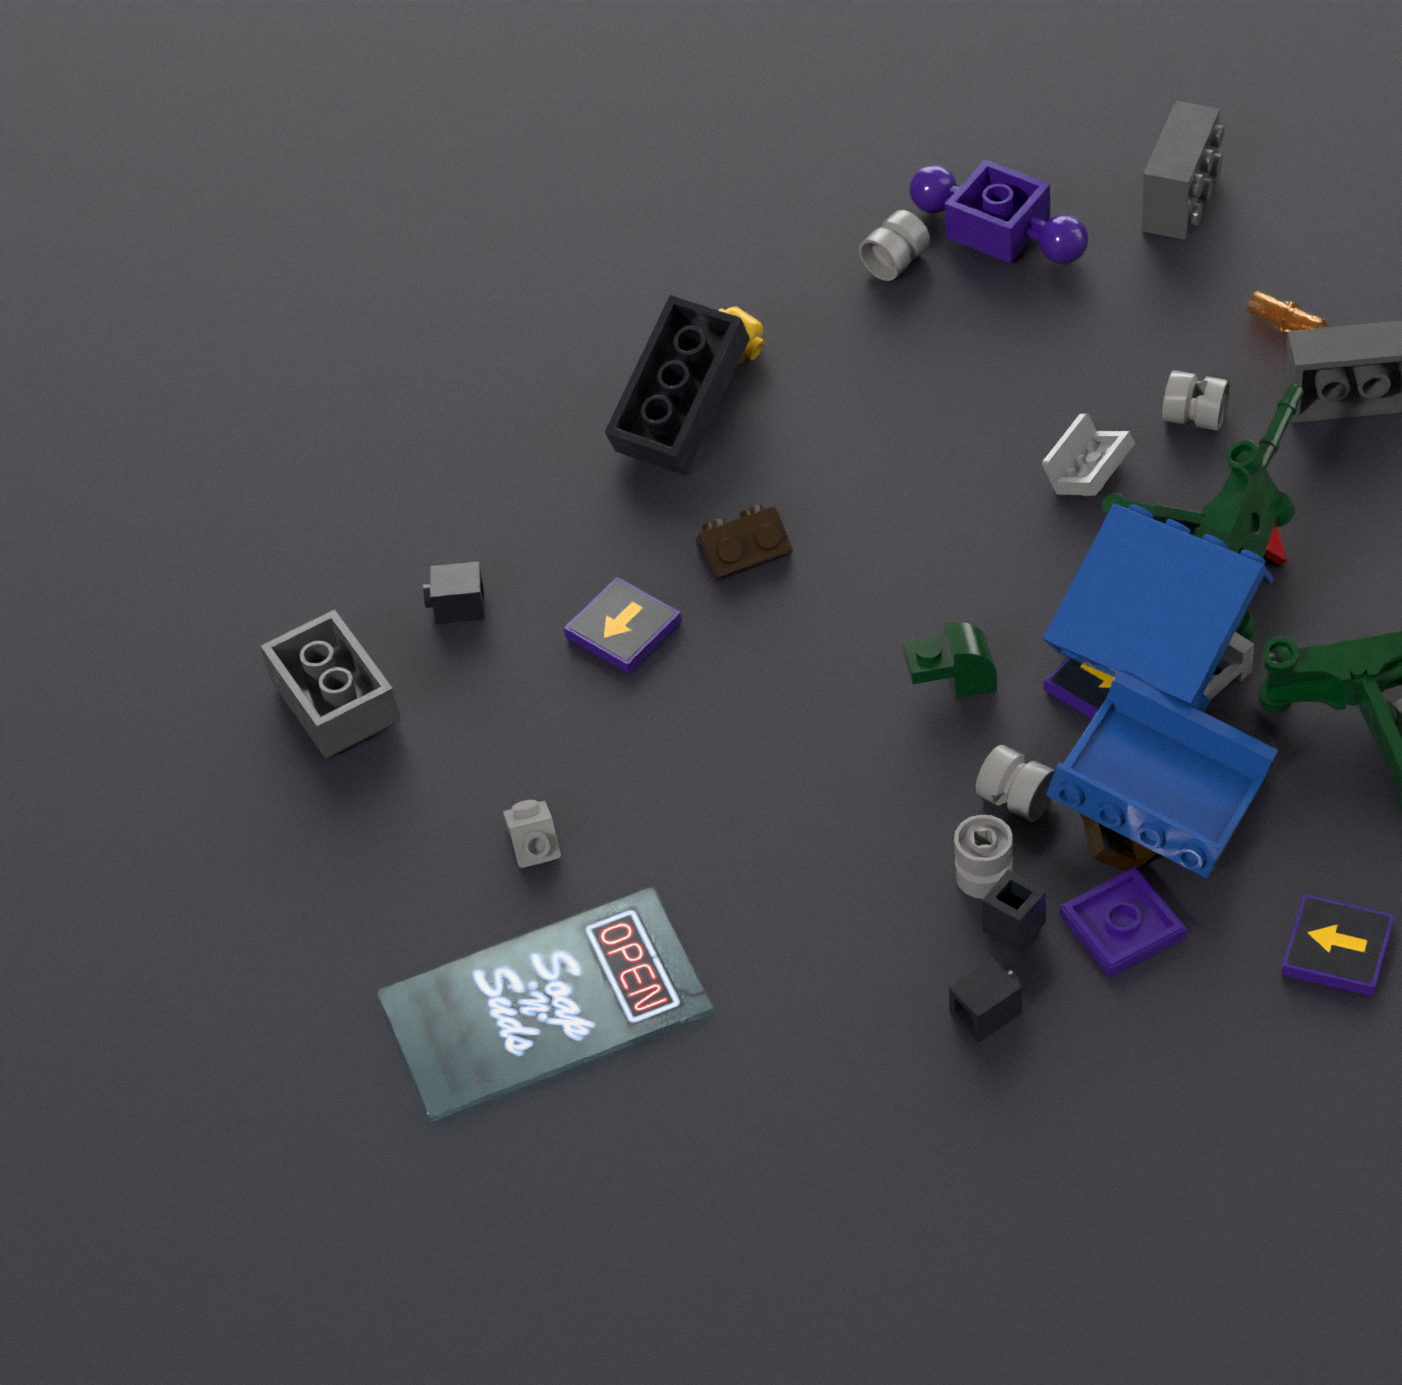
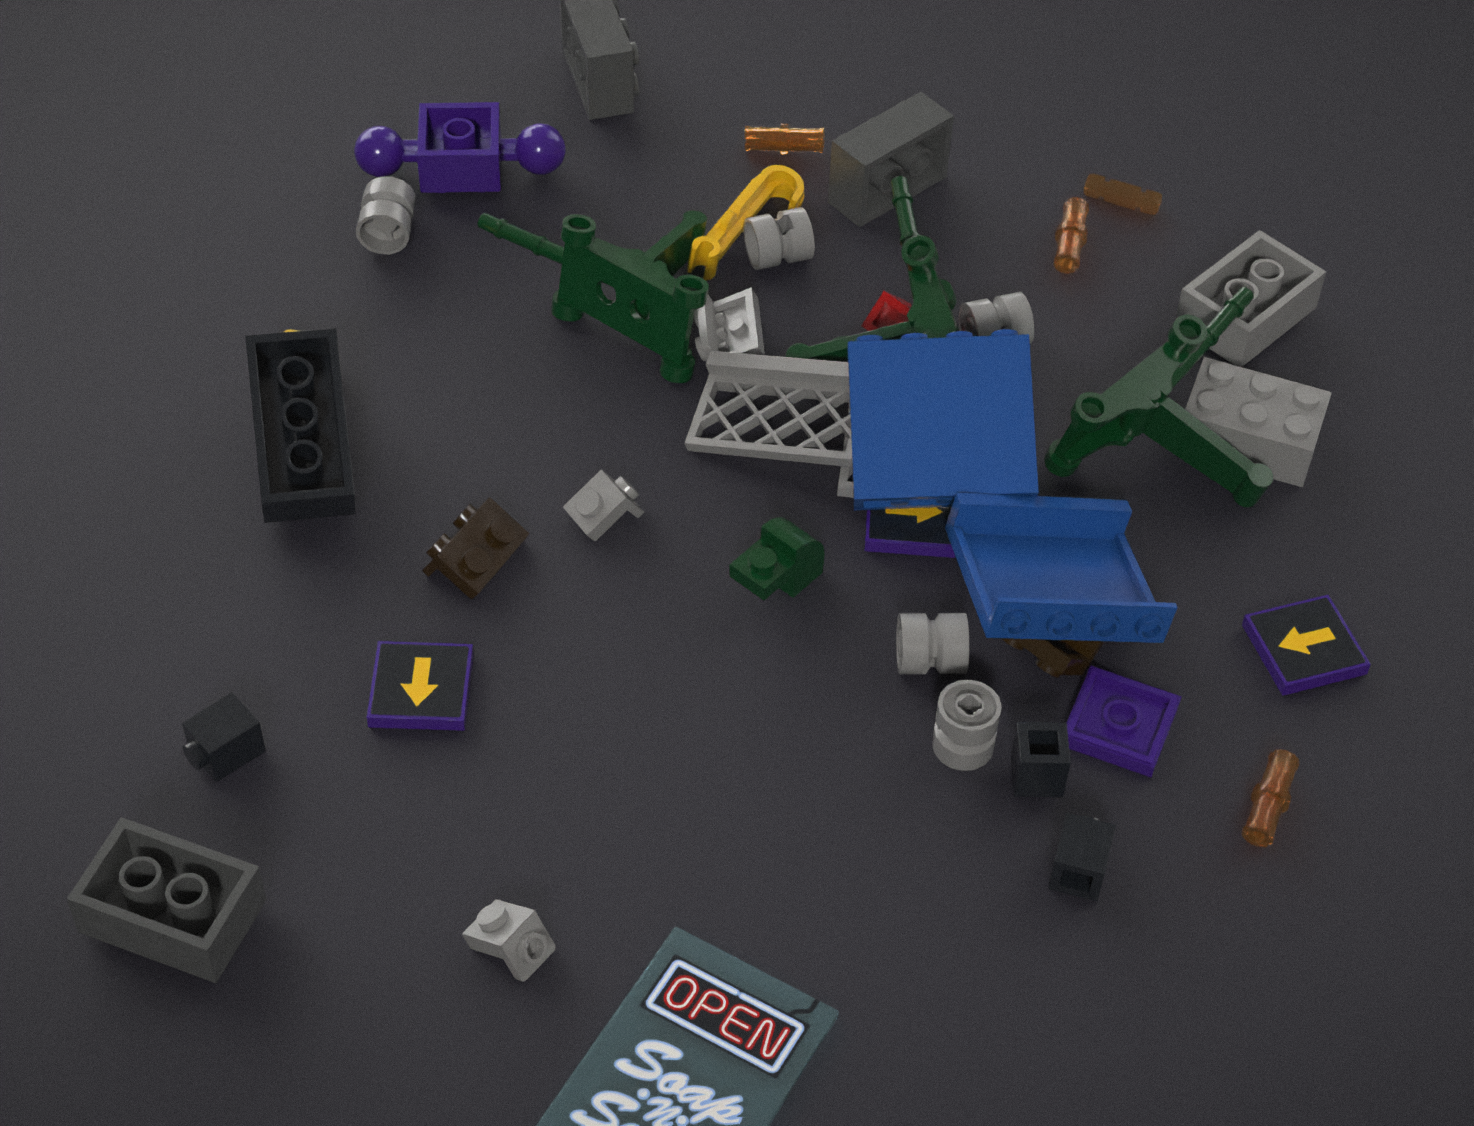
camera: 45 degrees left, 0 degrees up
(866, 551) = (602, 504): none -> light grey bracket
(1026, 390) = (648, 301): none -> dark green piece
(1061, 507) = (774, 376): none -> light grey fence
(1183, 1041) = (1270, 798): none -> clear orange pin
(1198, 360) = (771, 182): none -> yellow piece
(1316, 555) = (1006, 312): none -> light grey wheel

